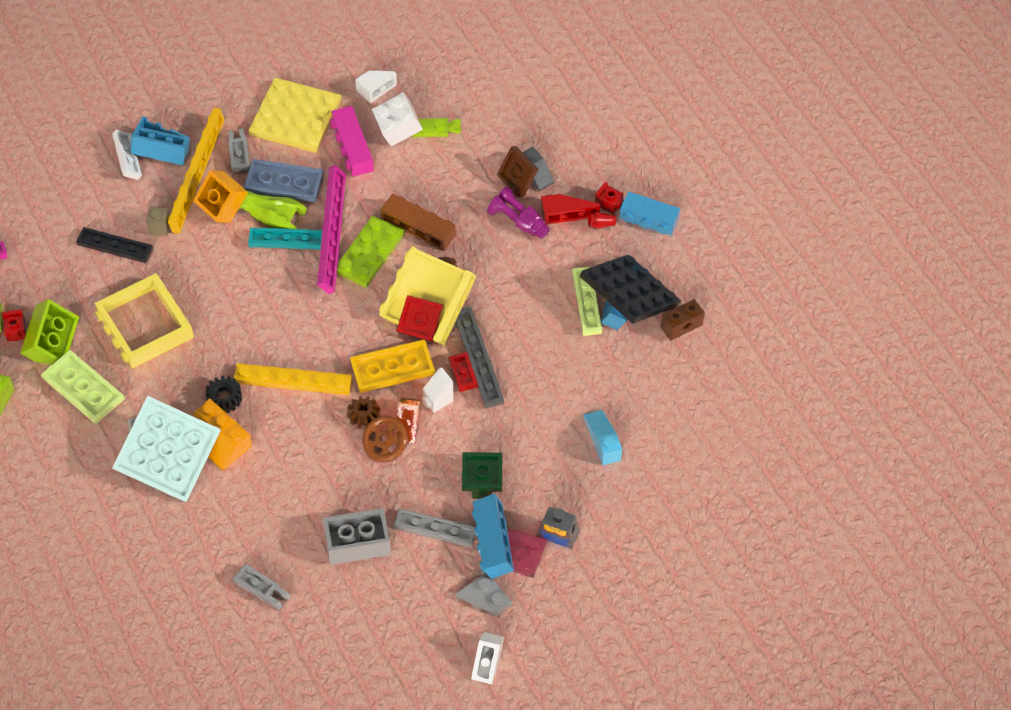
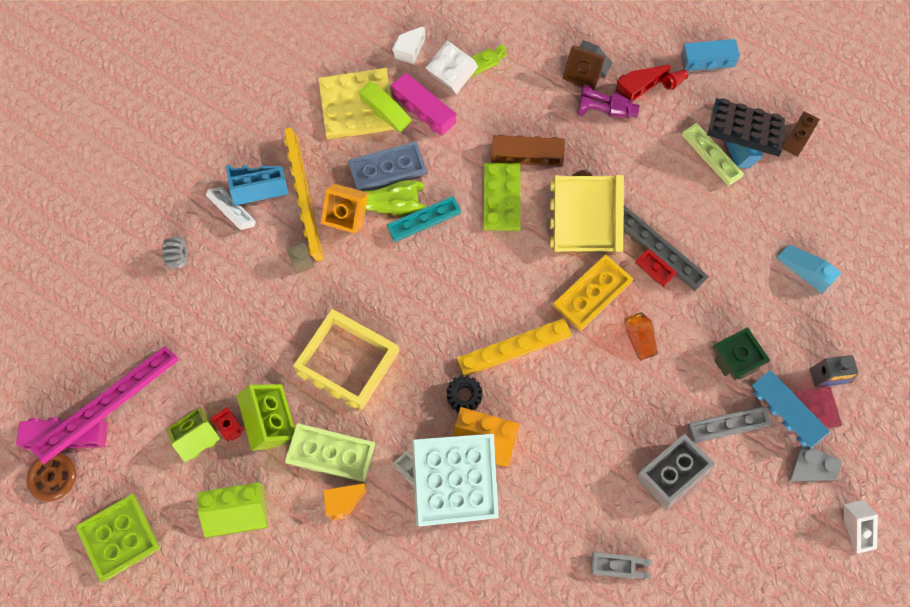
camera: 25 degrees left, 10 degrees up
(56, 169) = (175, 252): none -> light grey gear
(69, 426) = (342, 500): none -> light orange slope
(114, 245) = (271, 298): black tile -> none
(238, 152) = (330, 159): light grey hinge -> none
(312, 126) = (384, 106): none -> lime slope
(331, 230) = (461, 194): dark pink plate -> none
(362, 411) = (592, 353): reddish brown gear -> none
(400, 441) = (623, 377): dark orange plate -> none
(420, 318) = (591, 237): red tile -> none
(438, 391) = (652, 296): white slope -> none
(609, 198) = (669, 55): red brick -> none

